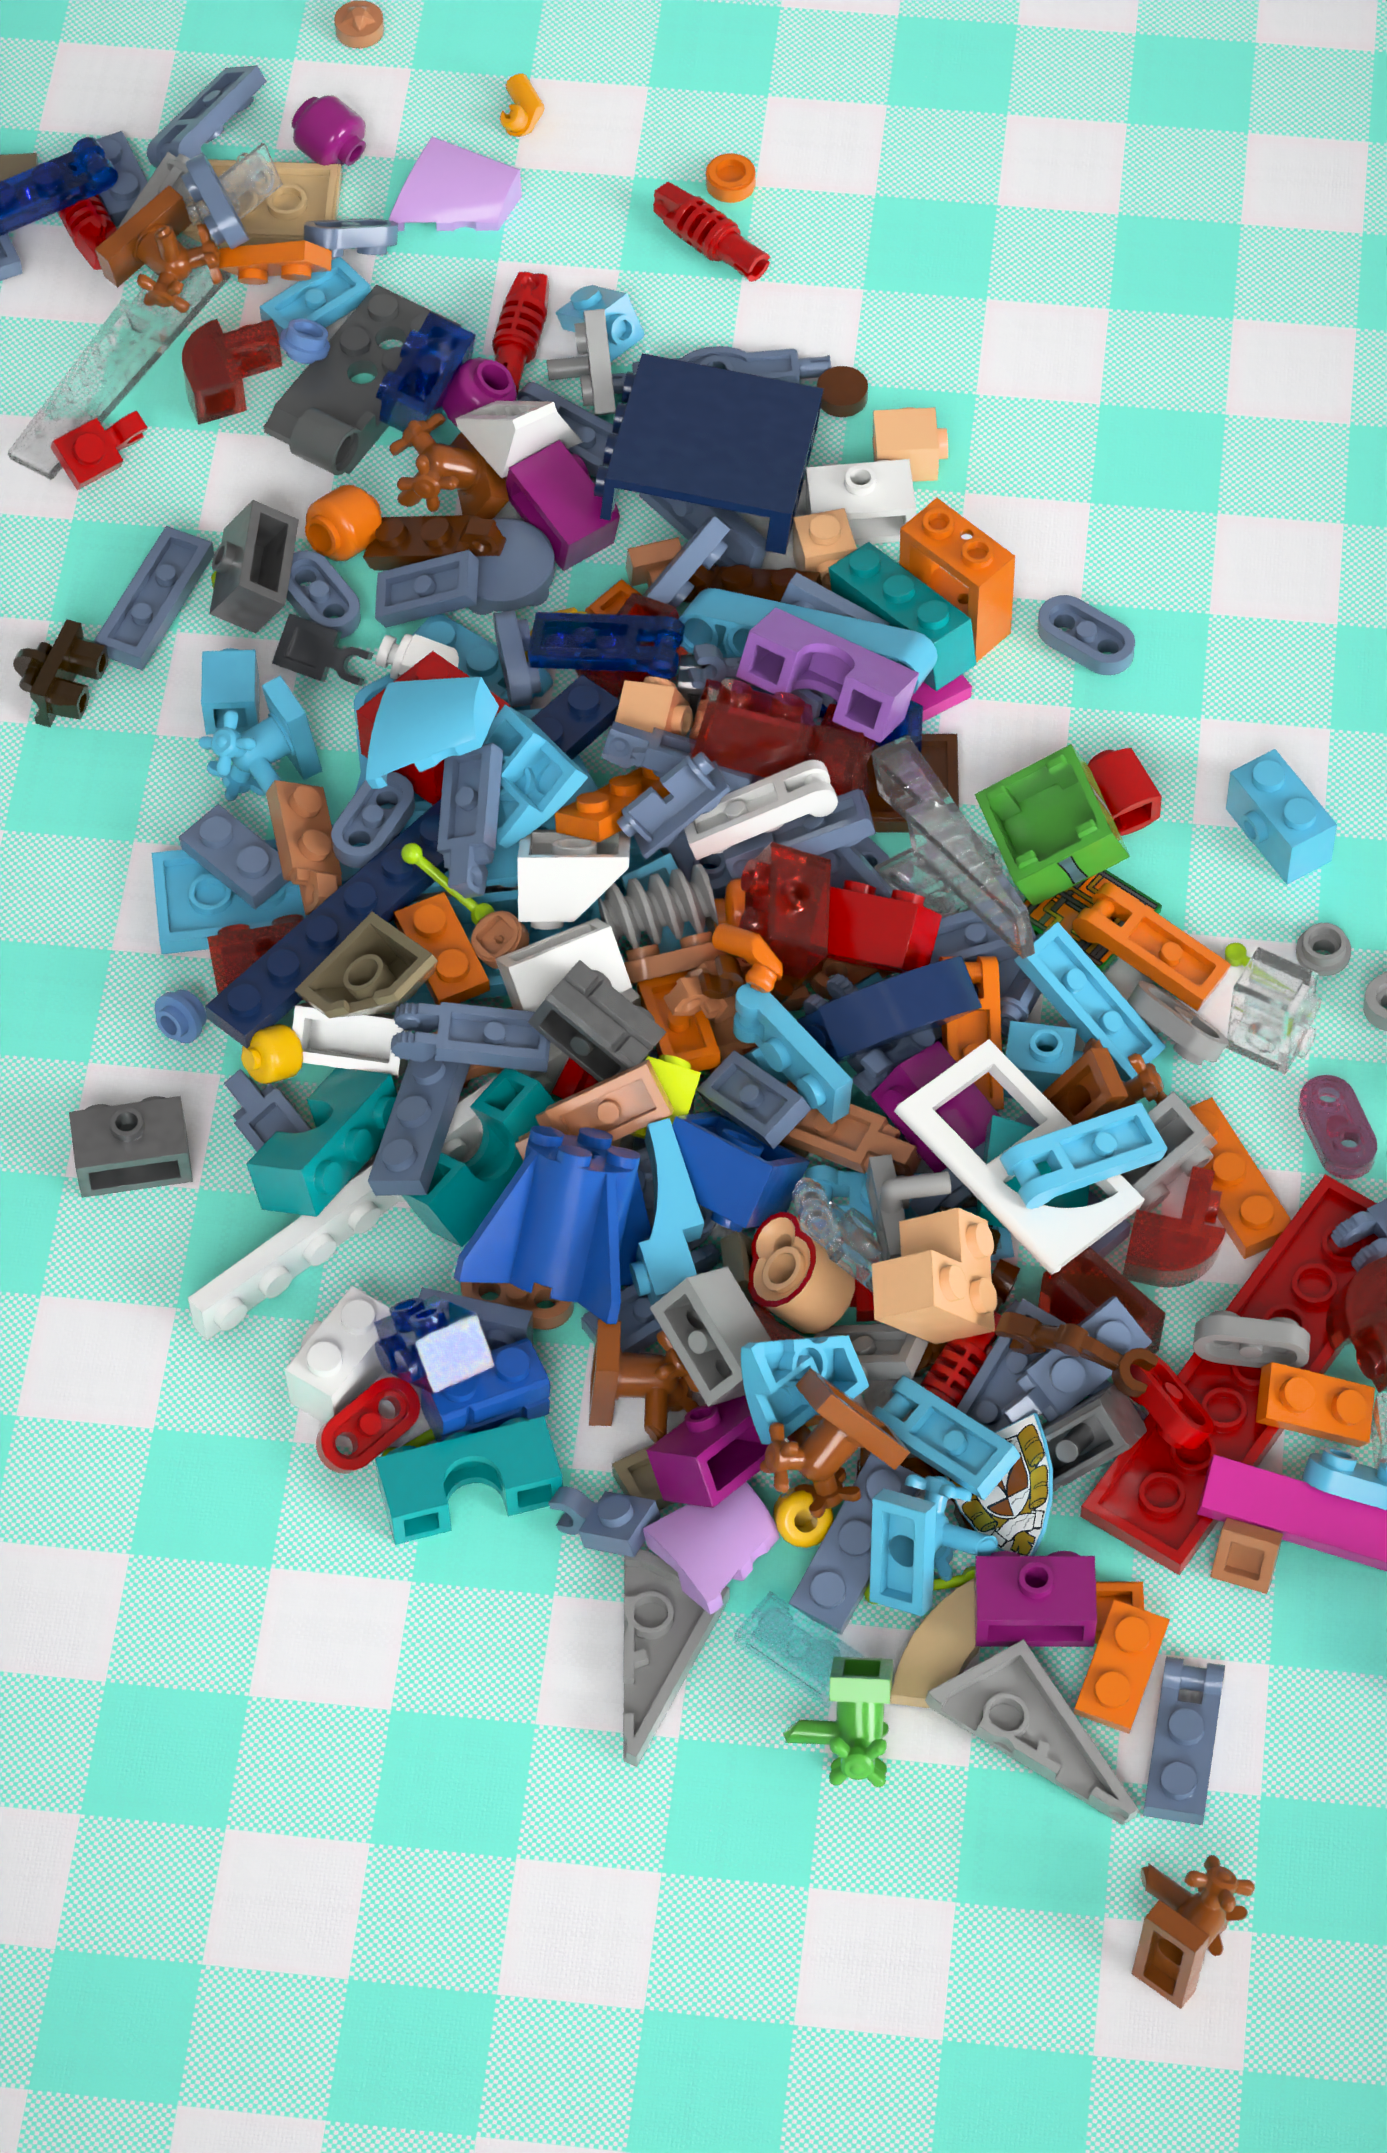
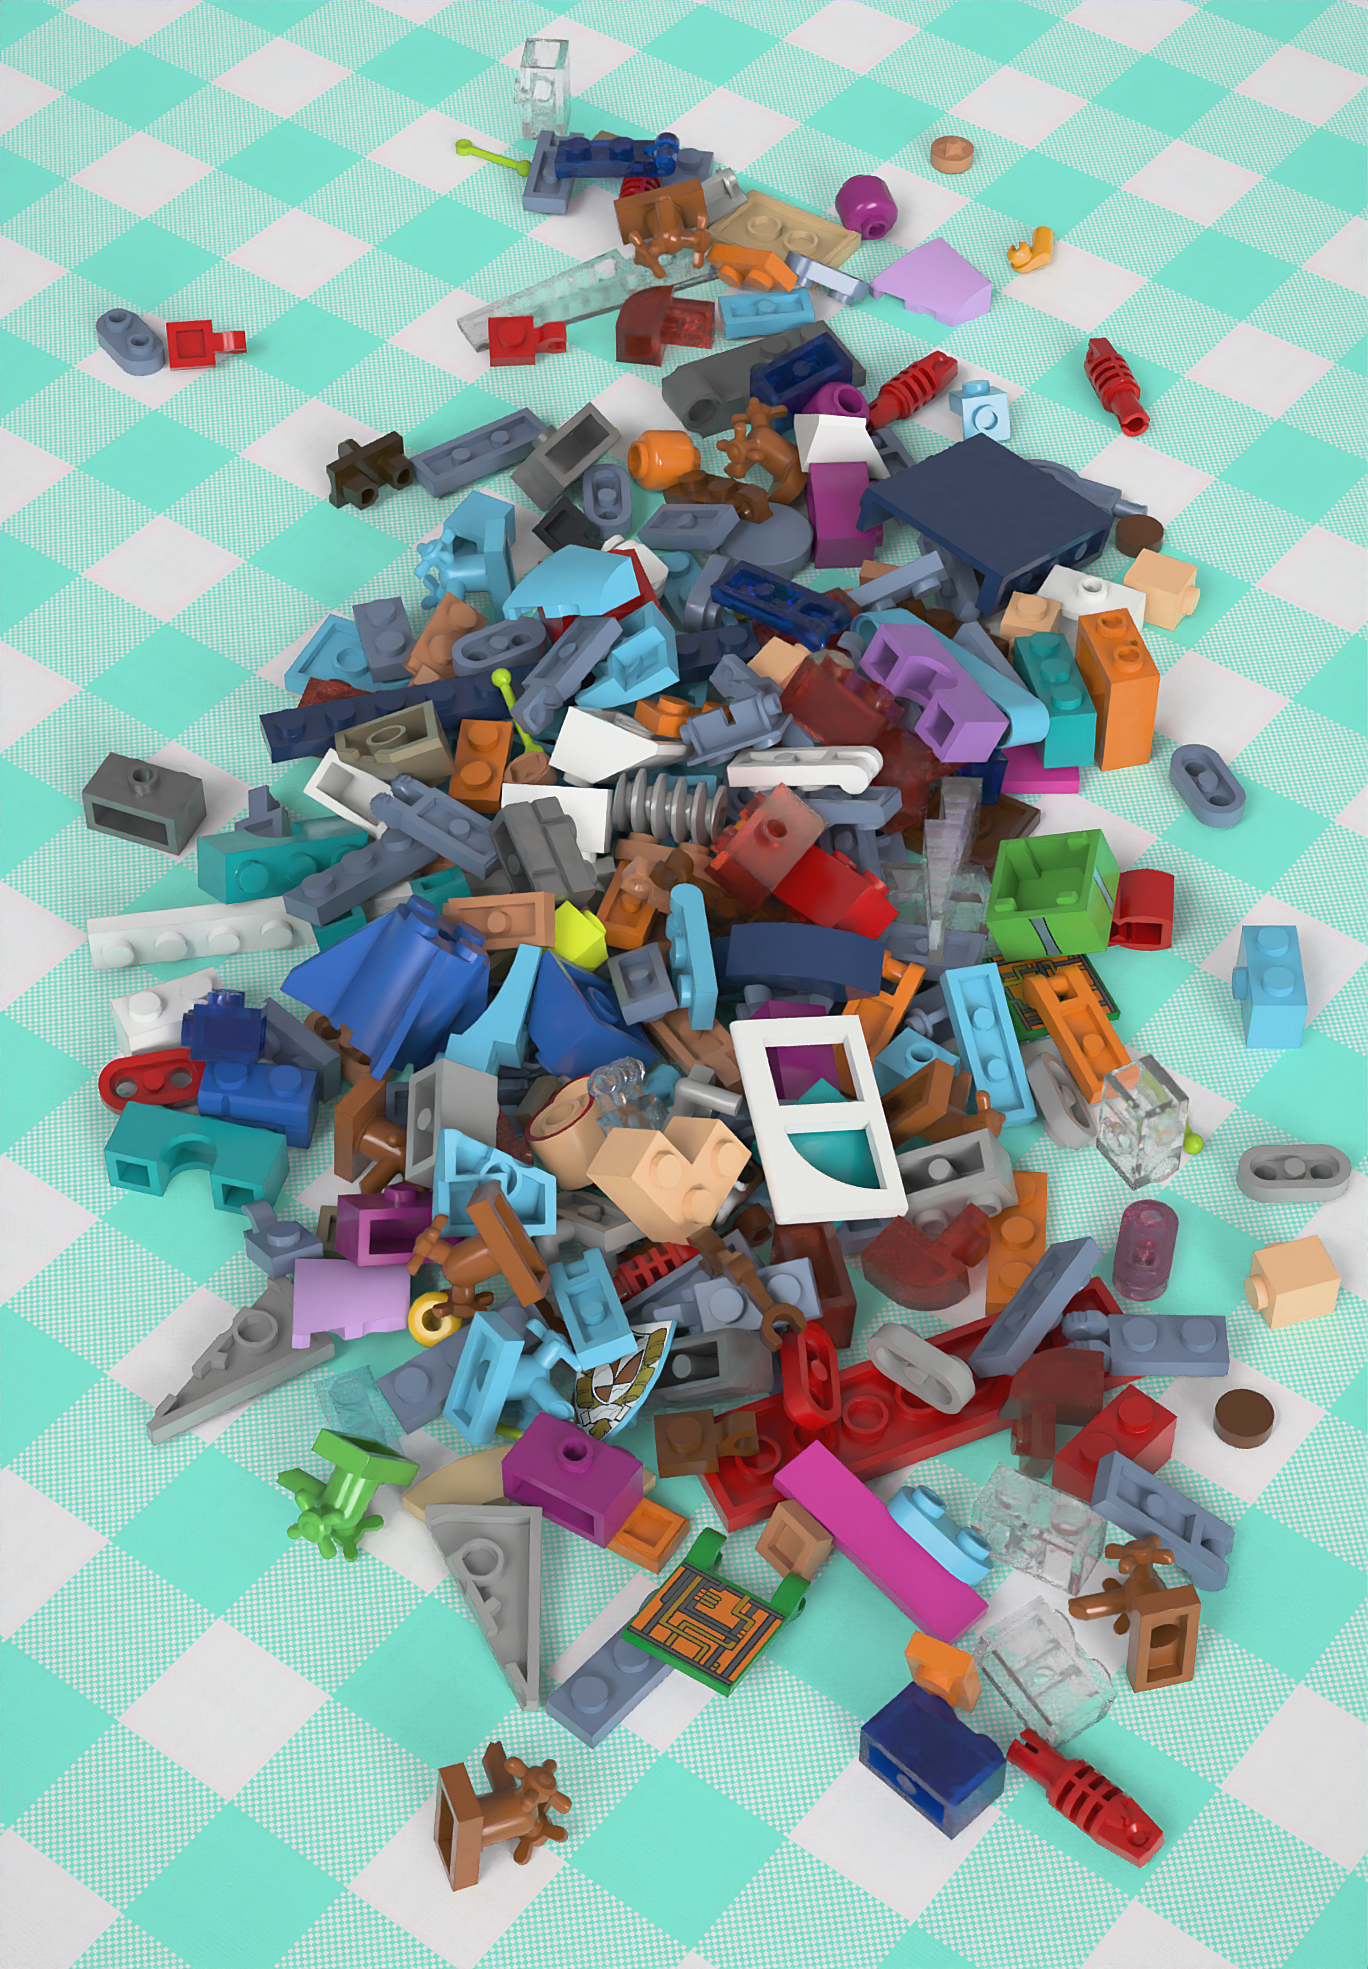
camera: 30 degrees right, 10 degrees down
(180, 1016) = (250, 734): medium blue plate -> none
(205, 185) = (727, 195): sand blue plate -> none
(206, 113) = (780, 166): sand blue plate -> none
(245, 183) = (758, 214): clear hinge -> none
(273, 1054) = (291, 779): yellow piece -> none
(305, 341) = (730, 328): medium blue plate -> none
(592, 369) = (949, 414): light grey plate -> none
(730, 178) = (1164, 360): orange tile -> none
(751, 946) = (705, 851): orange arm -> none
(1084, 1154) = (869, 1137): medium azure plate -> none
(1110, 1513) = (693, 1442): none -> reddish brown plate
(1121, 1666) = (614, 1576): orange plate -> none
(1232, 1664) = (709, 1623): none -> flag
(1305, 1235) = (1035, 1307): none -> sand blue plate
(1315, 1404) = (943, 1448): orange plate -> none
(1328, 938) = (1236, 1107): light grey plate -> none

